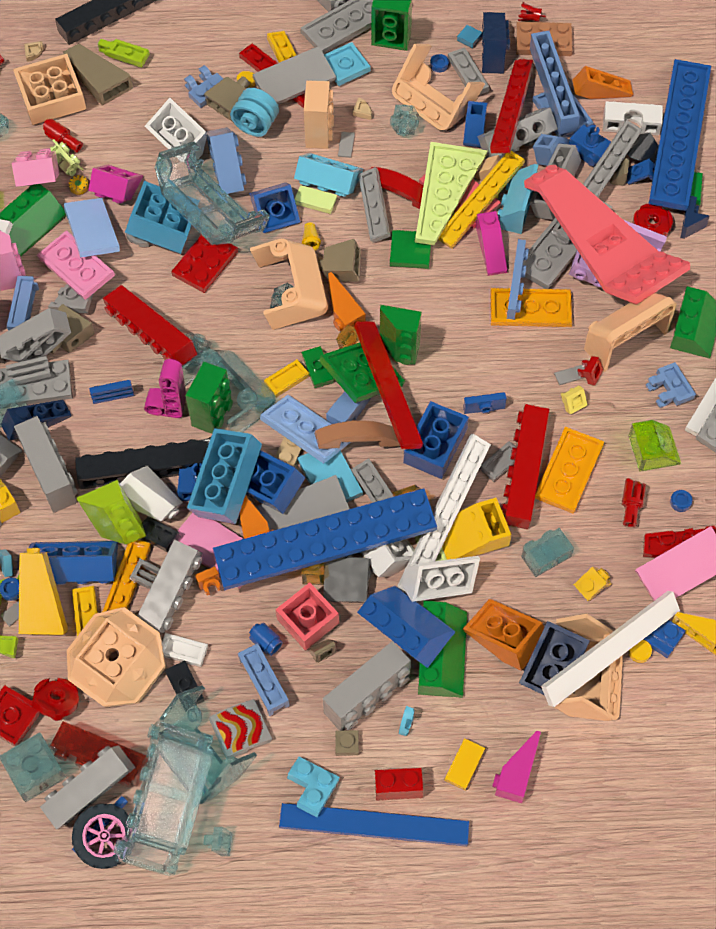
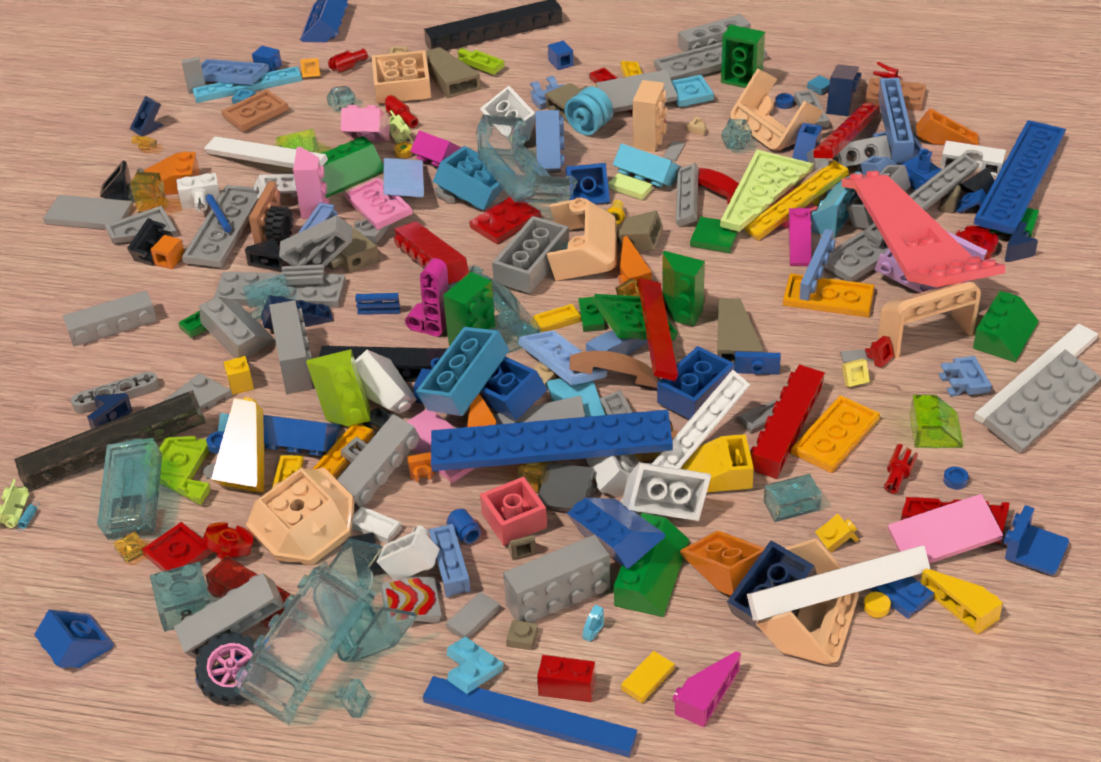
camera: 15 degrees right, 20 degrees down
(204, 33) = (560, 55): none -> blue brick
(229, 685) = (408, 554): none -> white brick
(243, 308) = (525, 258): none -> light grey brick
(298, 732) = (473, 616): none -> light grey tile
(456, 371) = (735, 330): none -> dark tan slope

